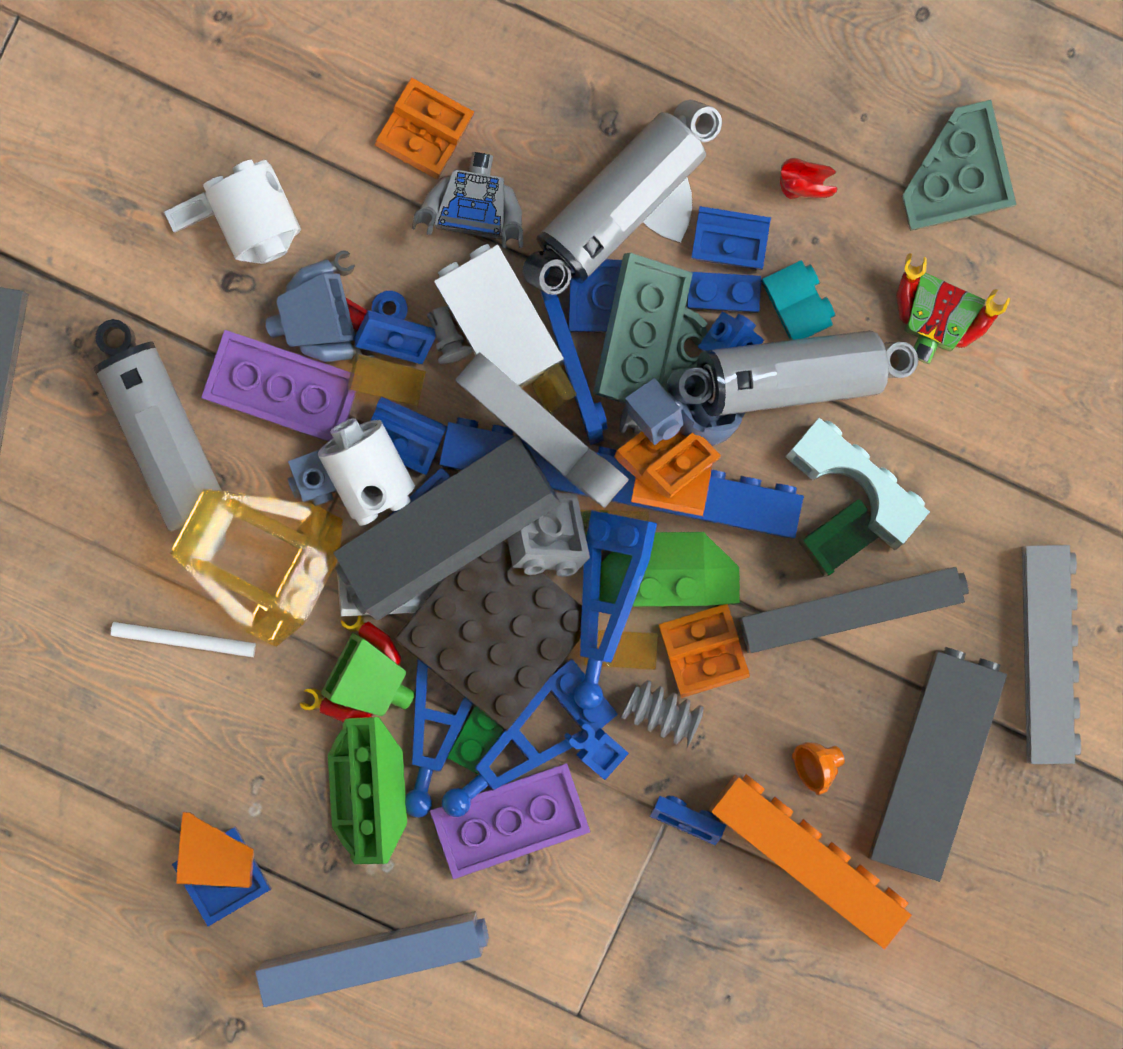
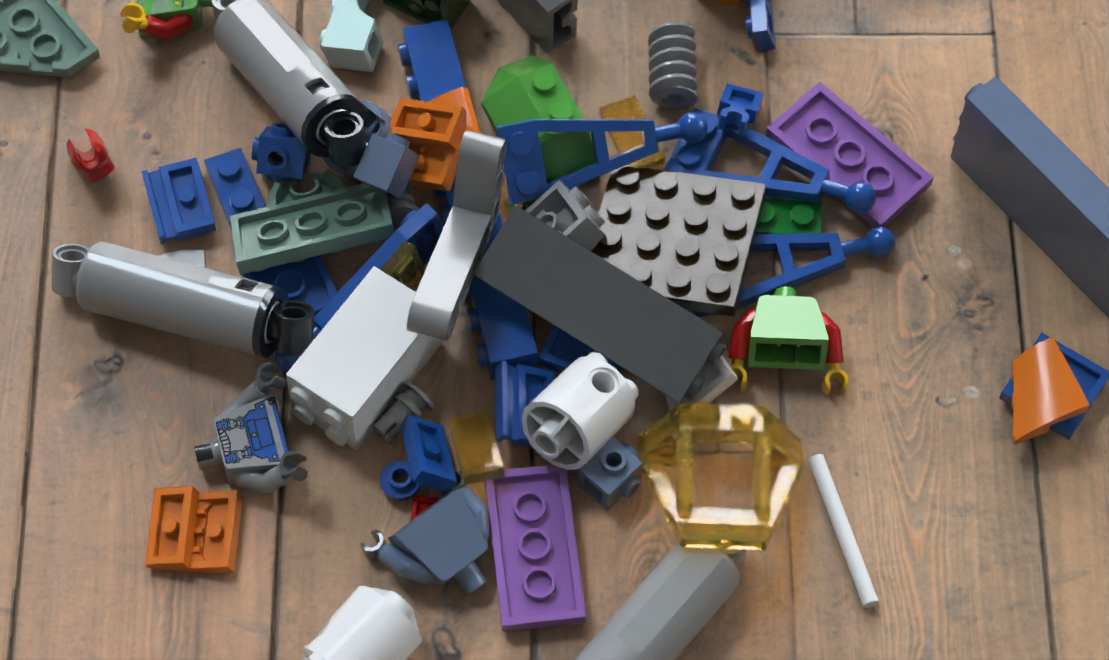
camera: 125 degrees left, 25 degrees down
(367, 790) = (898, 286): bright green wedge -> none
(704, 650) = (596, 64): orange slope -> none
(798, 302) = (215, 116): teal brick -> none

